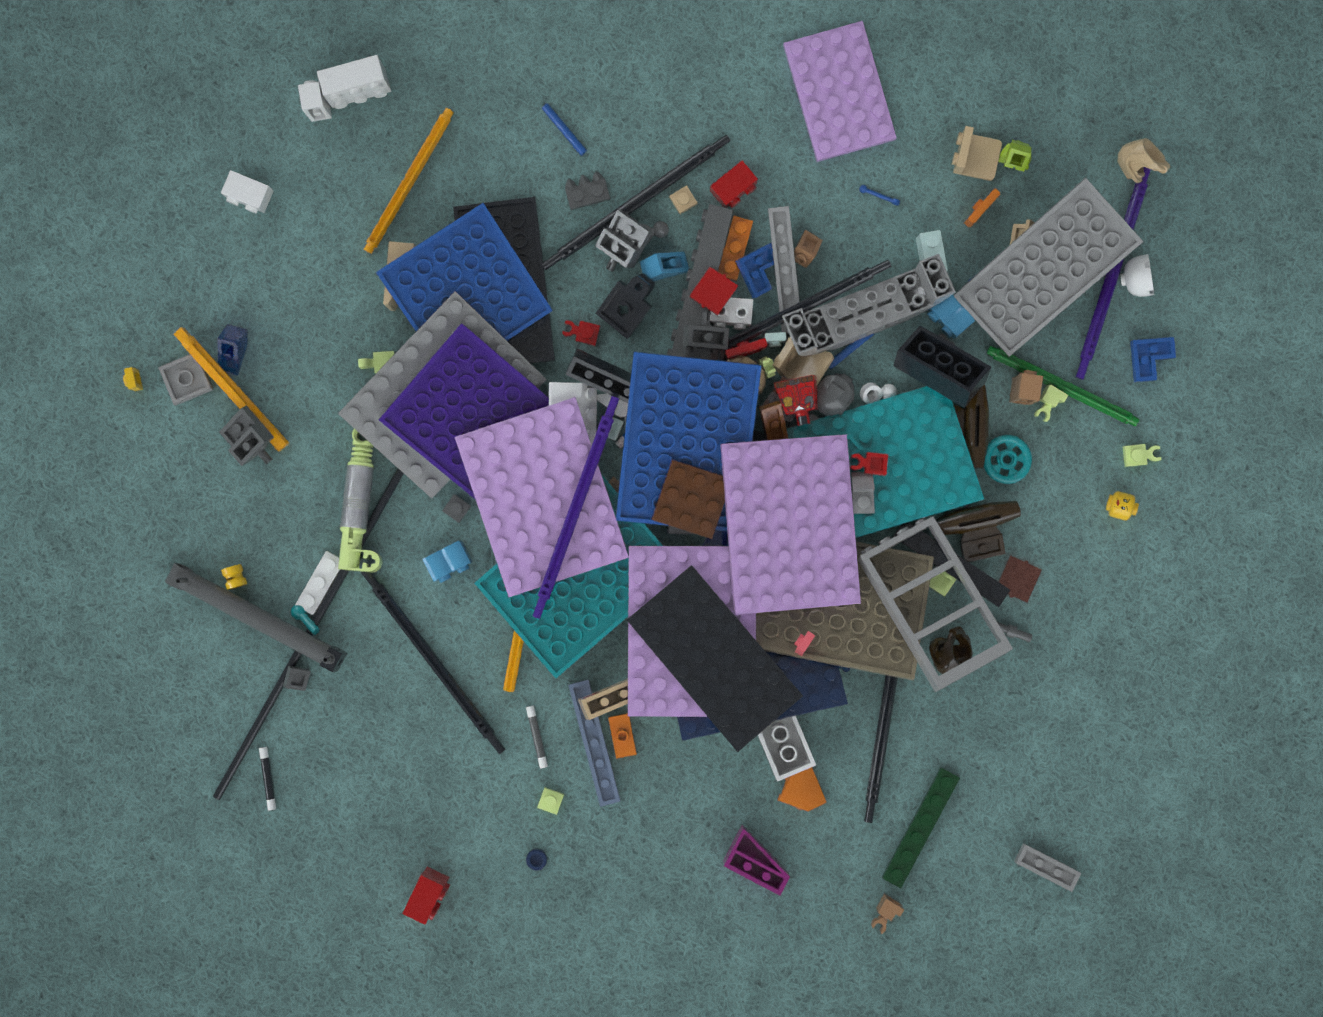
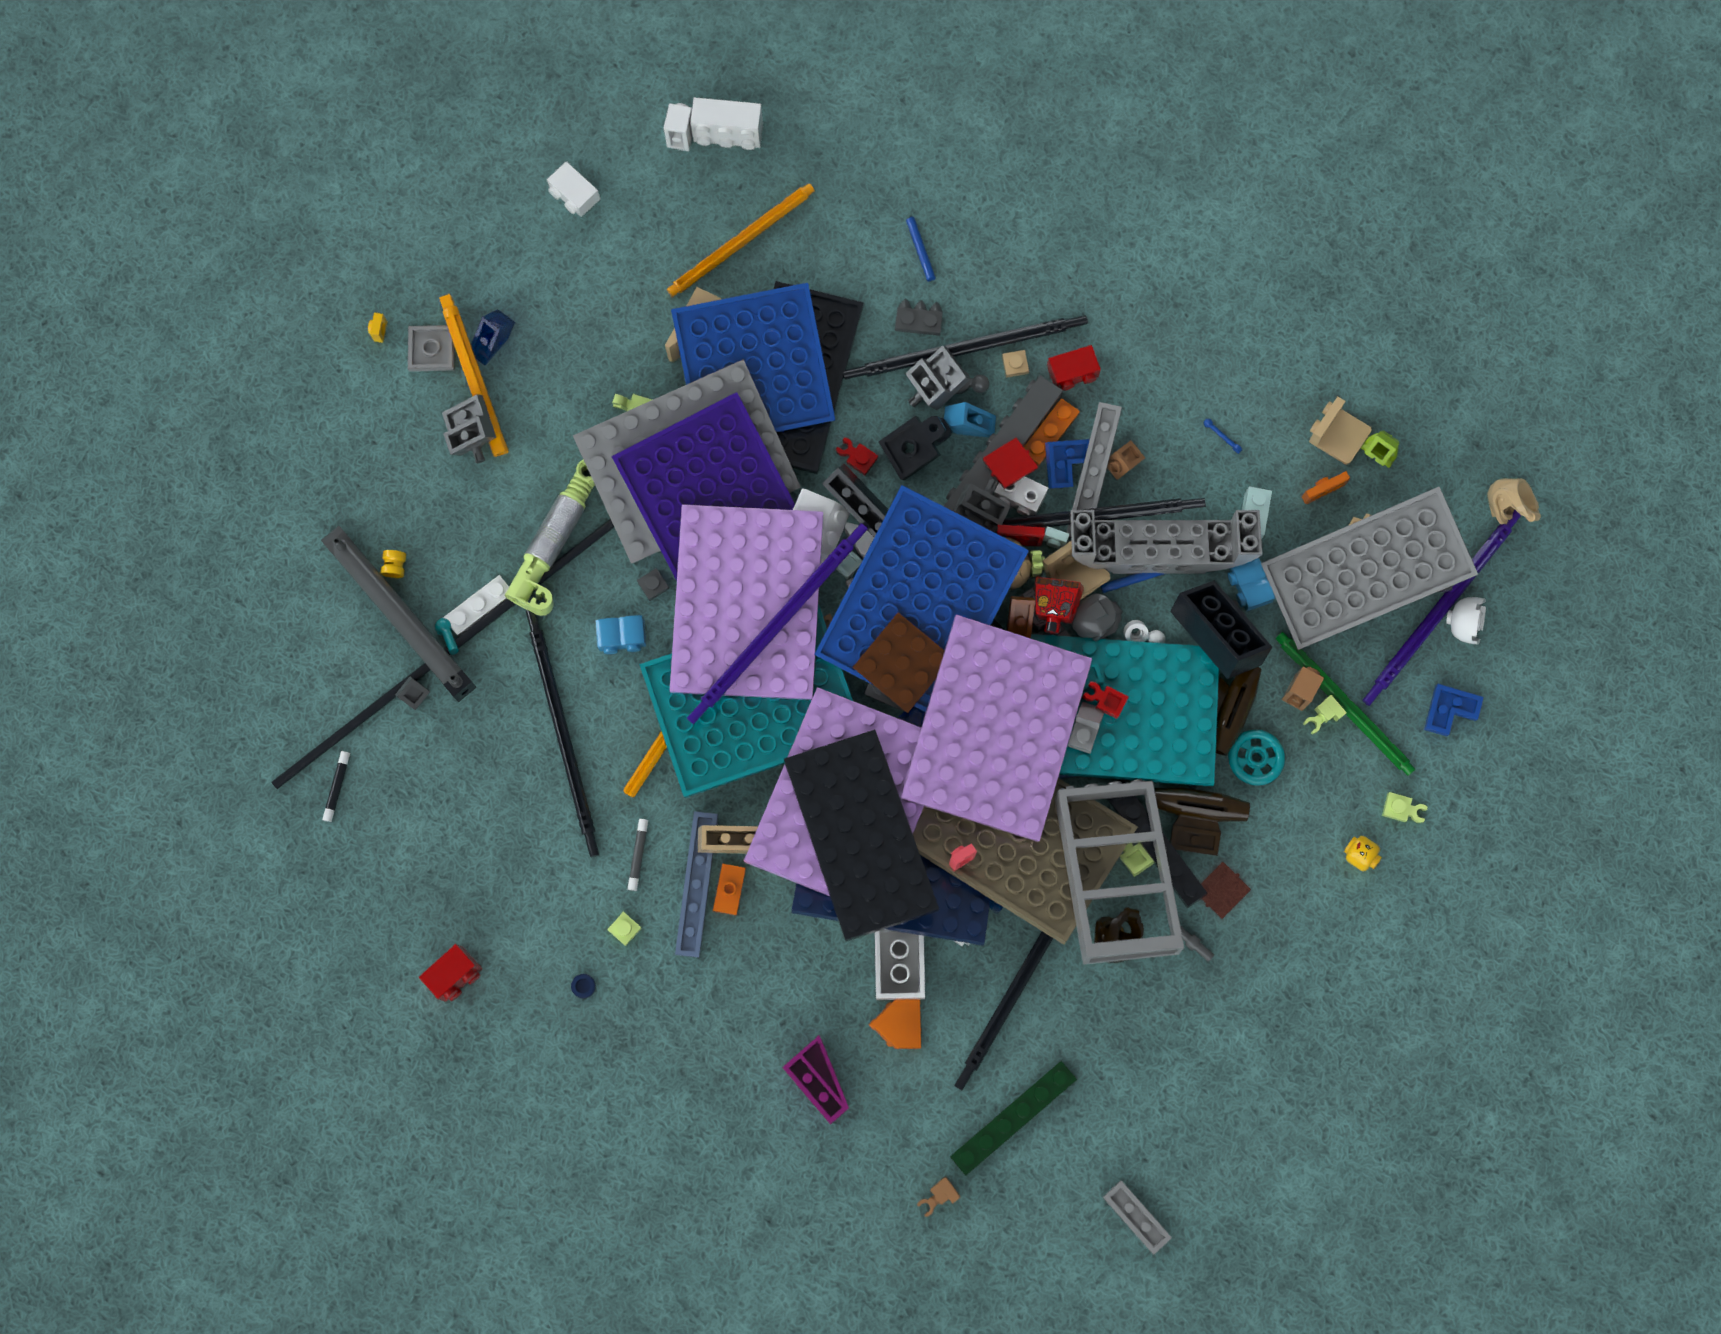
camera: 20 degrees right, 10 degrees down
(839, 91) = (1220, 317): lavender plate -> none

